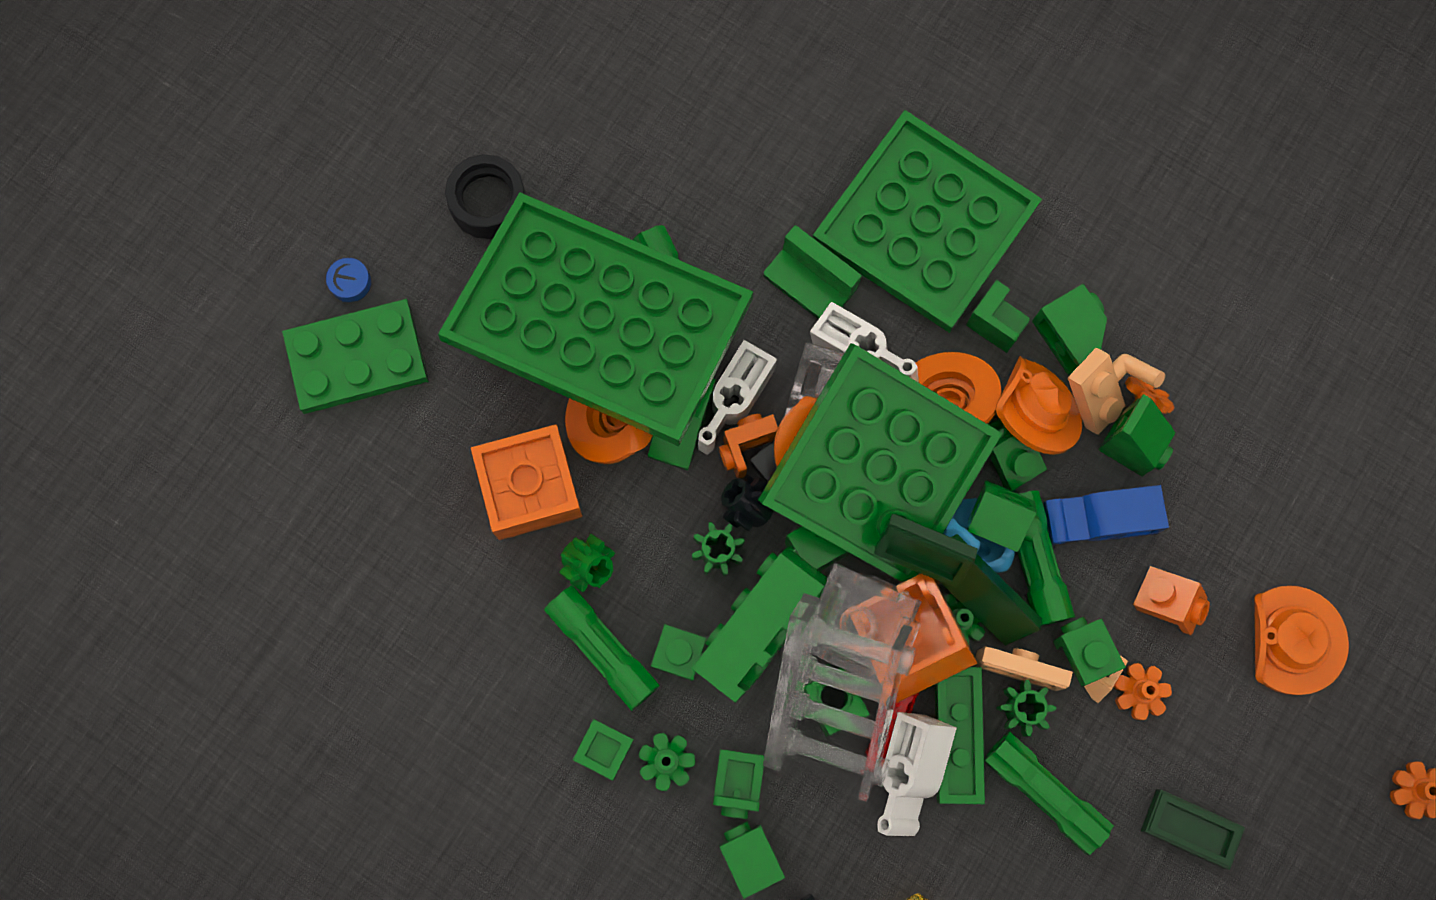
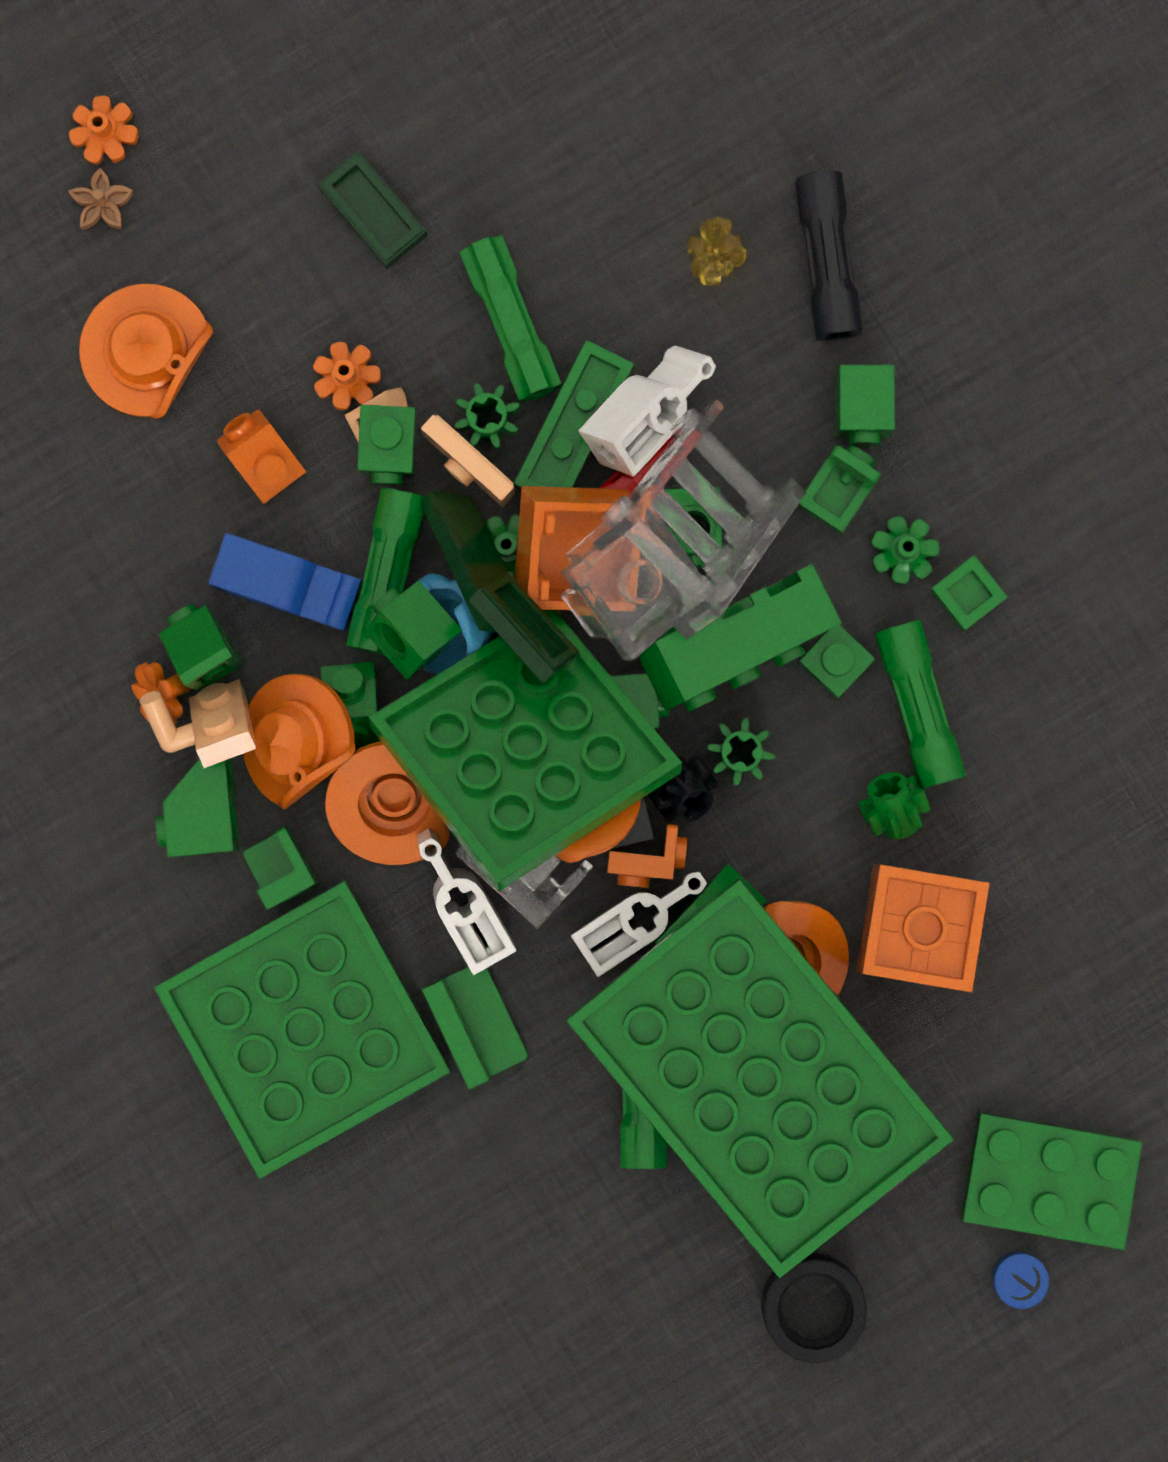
camera: 150 degrees left, 10 degrees up
(1390, 735) = (101, 201): none -> medium nougat plant

